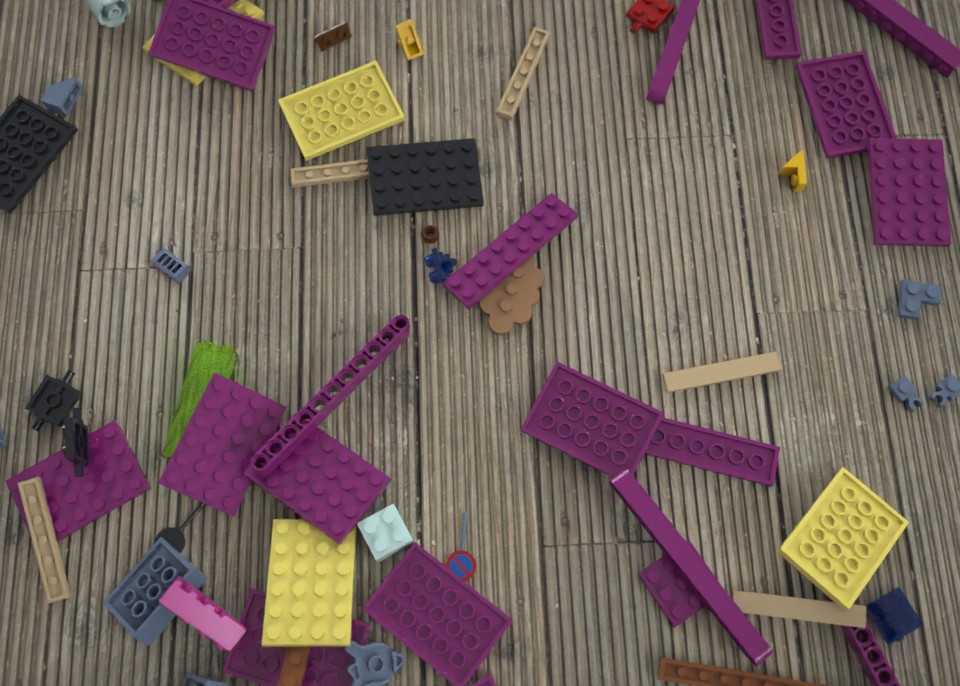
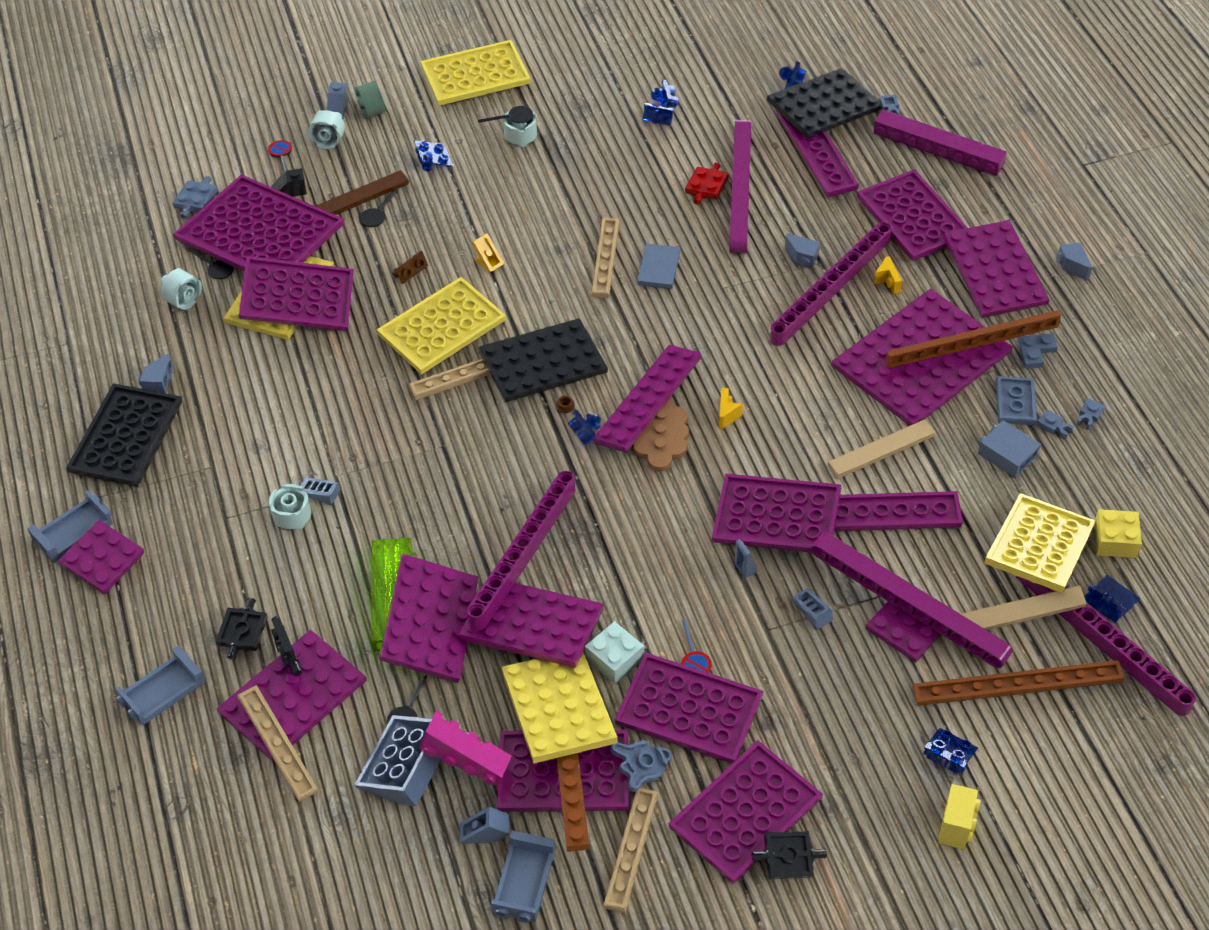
camera: 15 degrees left, 20 degrees down
(135, 280) = (290, 507): none -> light aqua brick
(543, 467) = (744, 560): none -> sand blue slope
(571, 97) = (659, 266): none -> sand blue tile
(583, 286) = (728, 411): none -> yellow slope
(599, 552) = (818, 618): none -> sand blue slope
(719, 118) = (802, 250): none -> sand blue slope
(731, 170) = (830, 284): none -> magenta beam
(798, 275) = (926, 385): none -> magenta plate
(849, 410) = (1008, 448): none -> sand blue brick
(863, 274) = (972, 339): none -> dark orange plate
(876, 353) = (1016, 400): none -> sand blue tile
(926, 545) = (1117, 533): none -> light yellow brick

